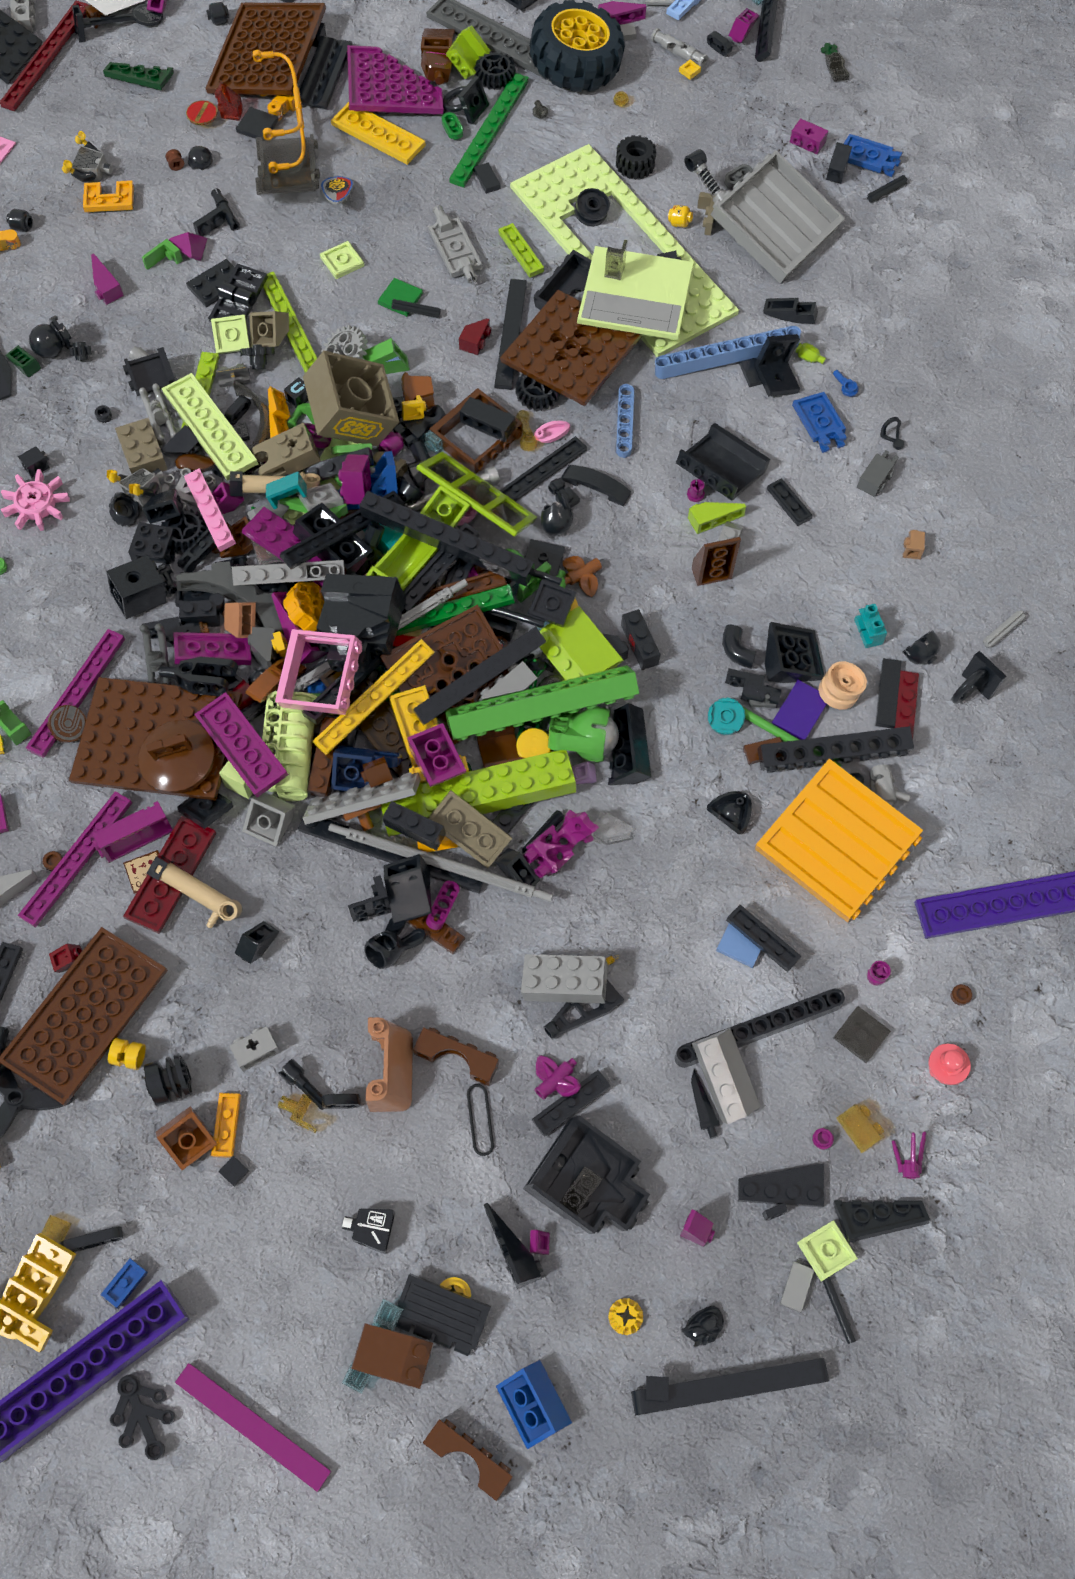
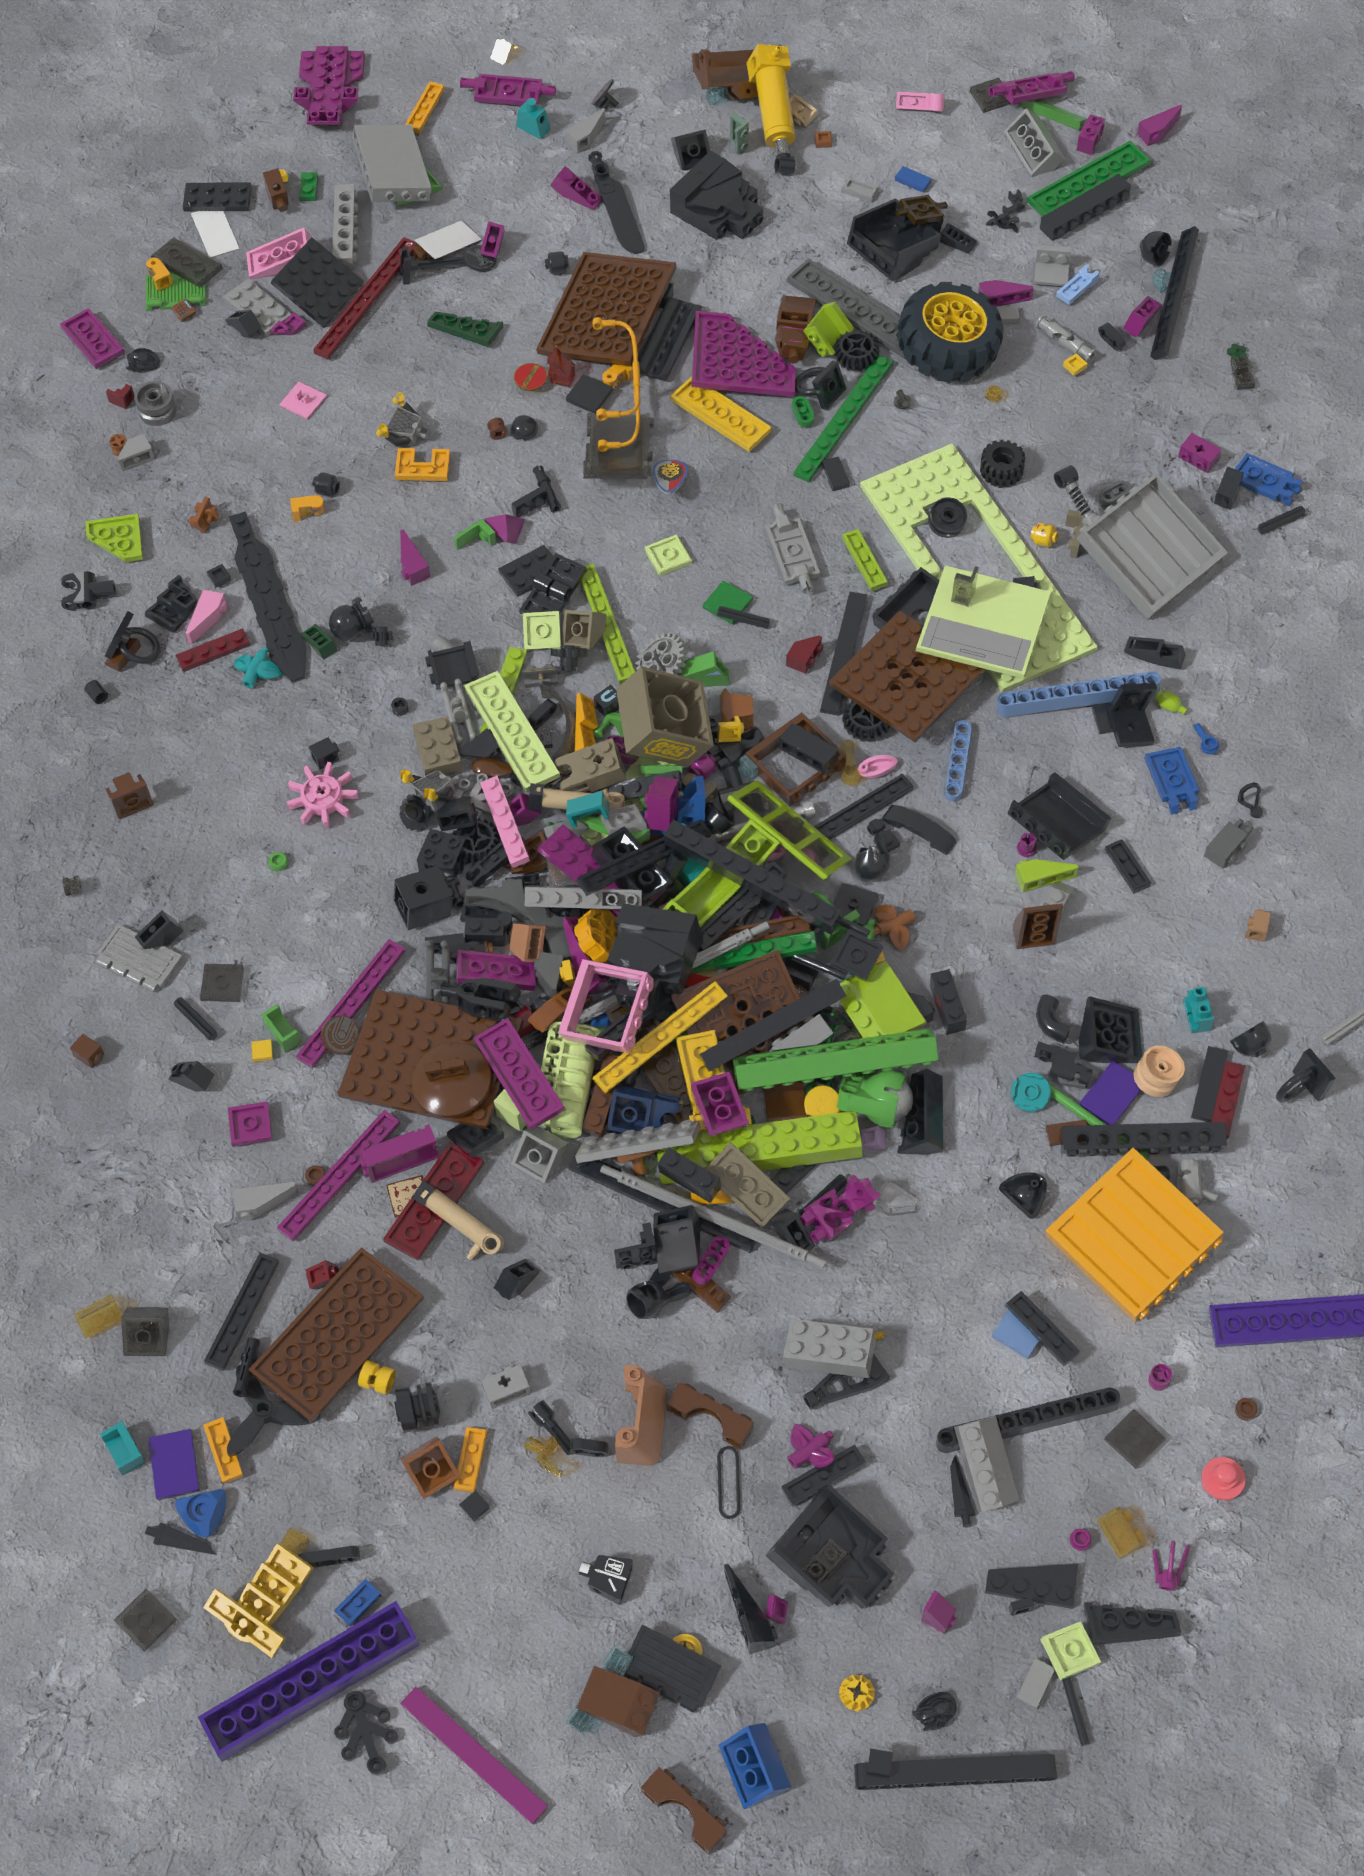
camera: 10 degrees right, 5 degrees down
(376, 772) = (655, 1116): reddish brown brick -> none

